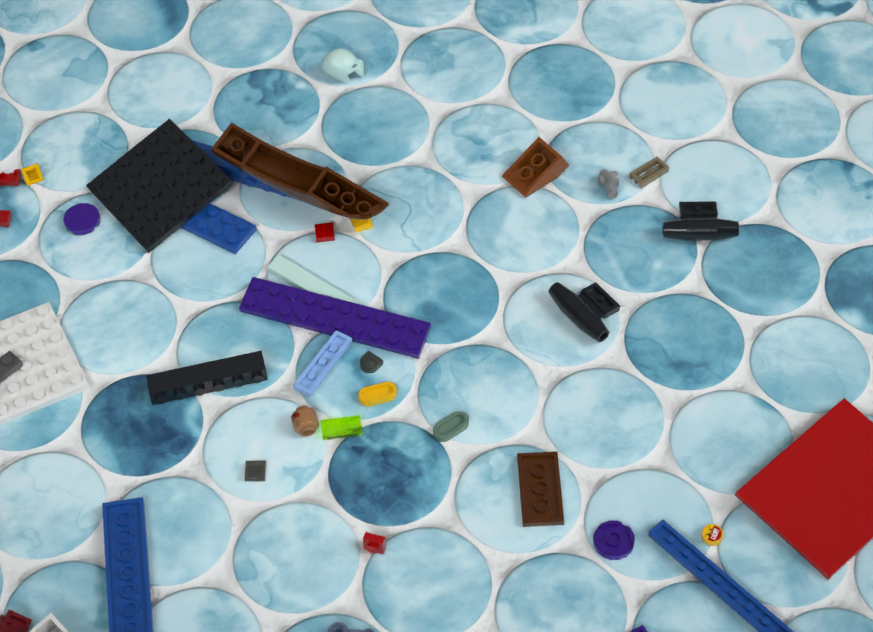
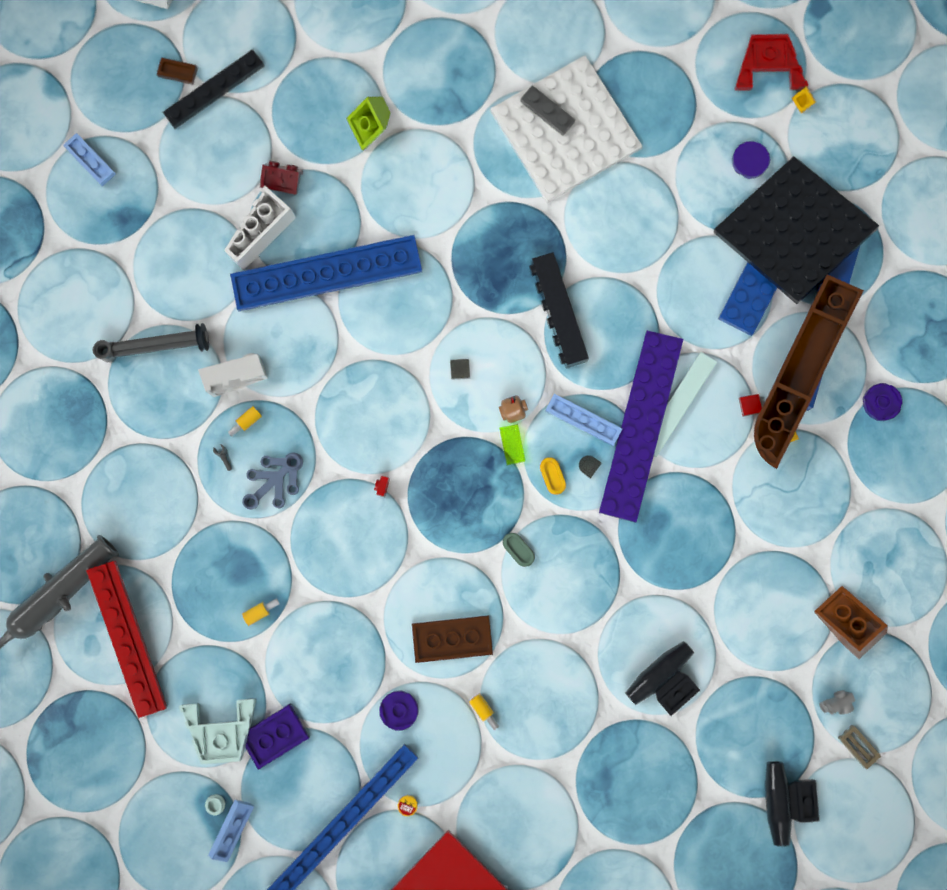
camera: 85 degrees right, 30 degrees up
(333, 137) = (882, 402): none -> dark purple tile
(613, 461) = (483, 710): none -> yellow piece

